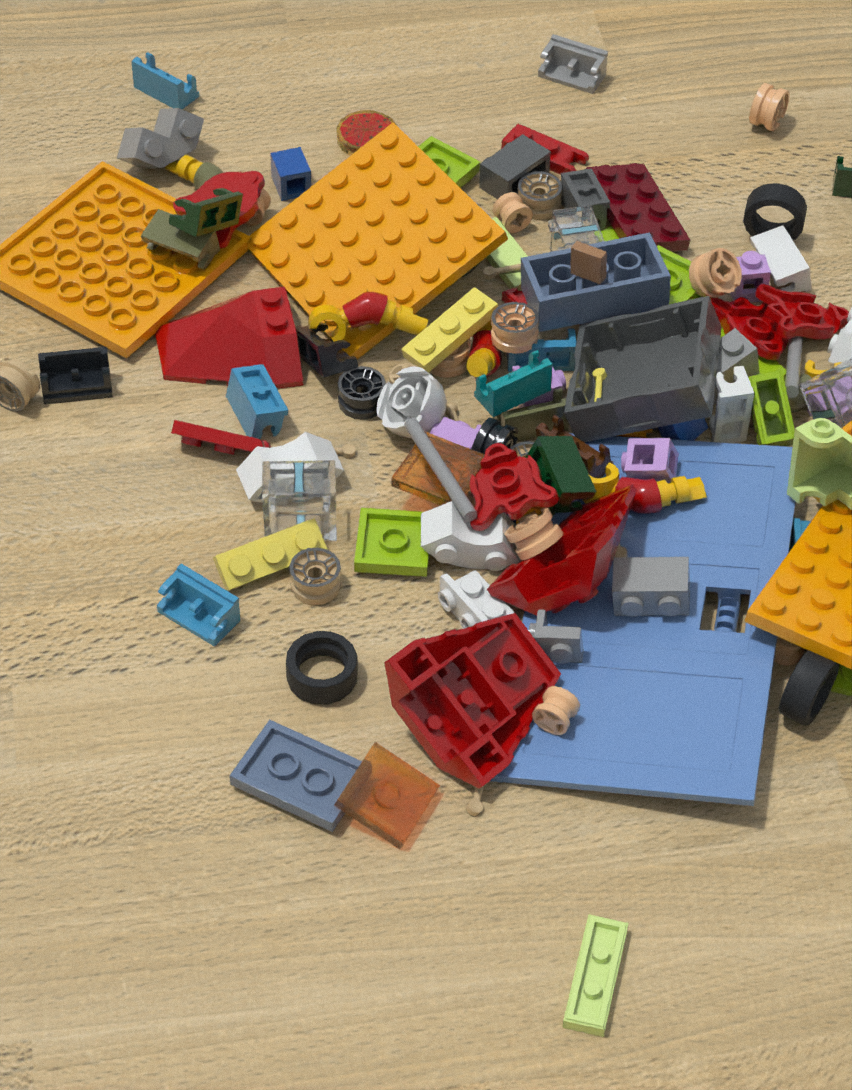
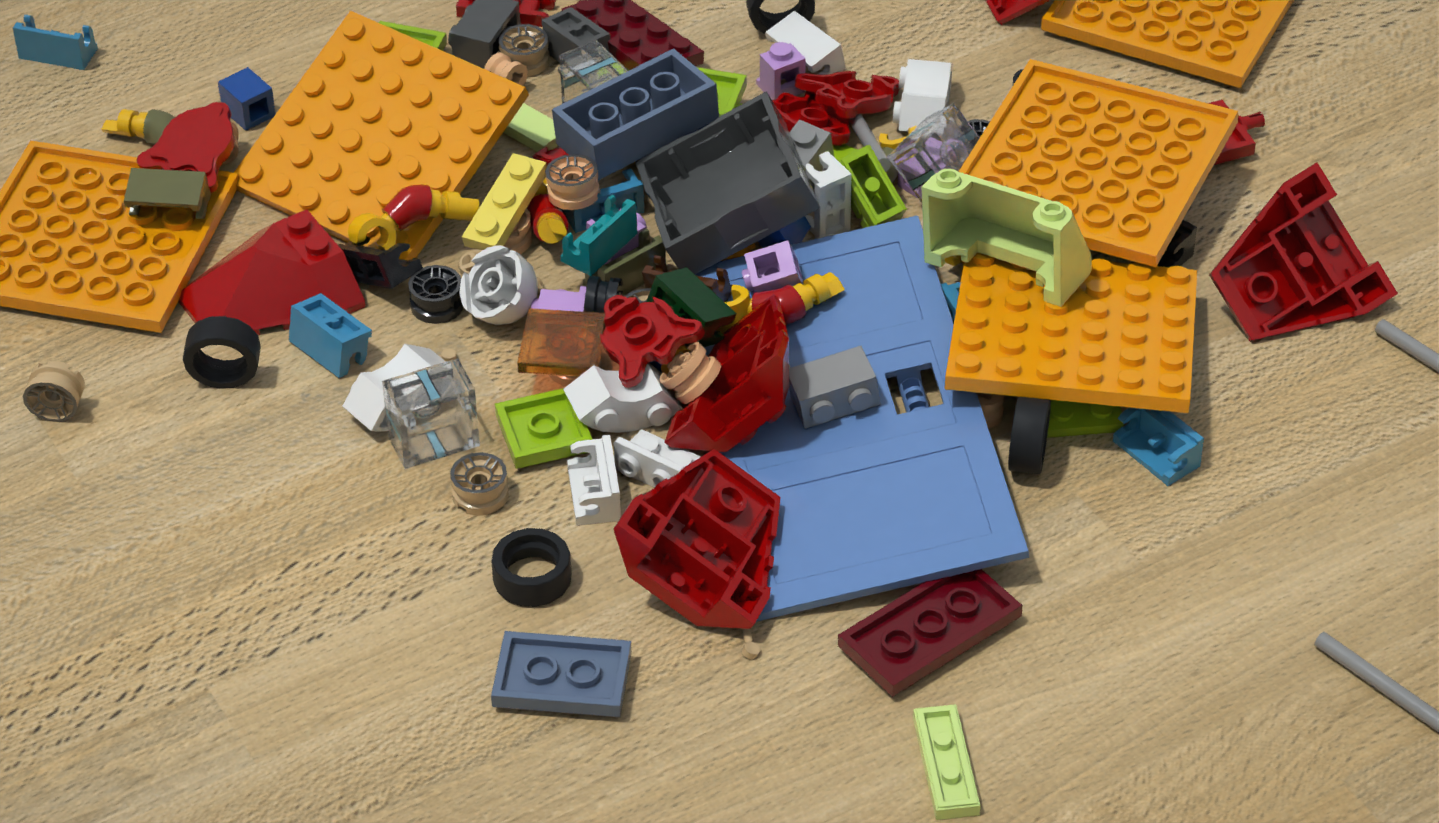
camera: 20 degrees left, 5 degrees down
(75, 375) = (117, 363): black hinge -> none
(168, 381) = (226, 332): none -> black tyre
(173, 137) = (96, 98): light grey brick -> none
(199, 605) = (371, 547): dark azure hinge -> none
(208, 214) = (194, 156): dark green hinge -> none
(223, 440) = (315, 381): red hinge -> none
(266, 554) = (418, 478): light yellow plate -> none
(359, 128) = (302, 36): tile -> none
(387, 795) = (661, 664): clear orange tile -> none
(412, 605) = (594, 482): none -> white hinge
(441, 470) = (567, 338): light grey bar -> none
(489, 272) = (511, 139): tan hinge -> none
(556, 710) = (794, 531): light nougat wheel -> none
(558, 642) = (767, 465): light grey bracket -> none
(588, 262) = (629, 92): medium nougat tile -> none
(599, 375) = (676, 207): light yellow hinge -> none
(637, 841) = (928, 628): none -> dark red plate
(715, 273) = (751, 73): light nougat wheel -> none

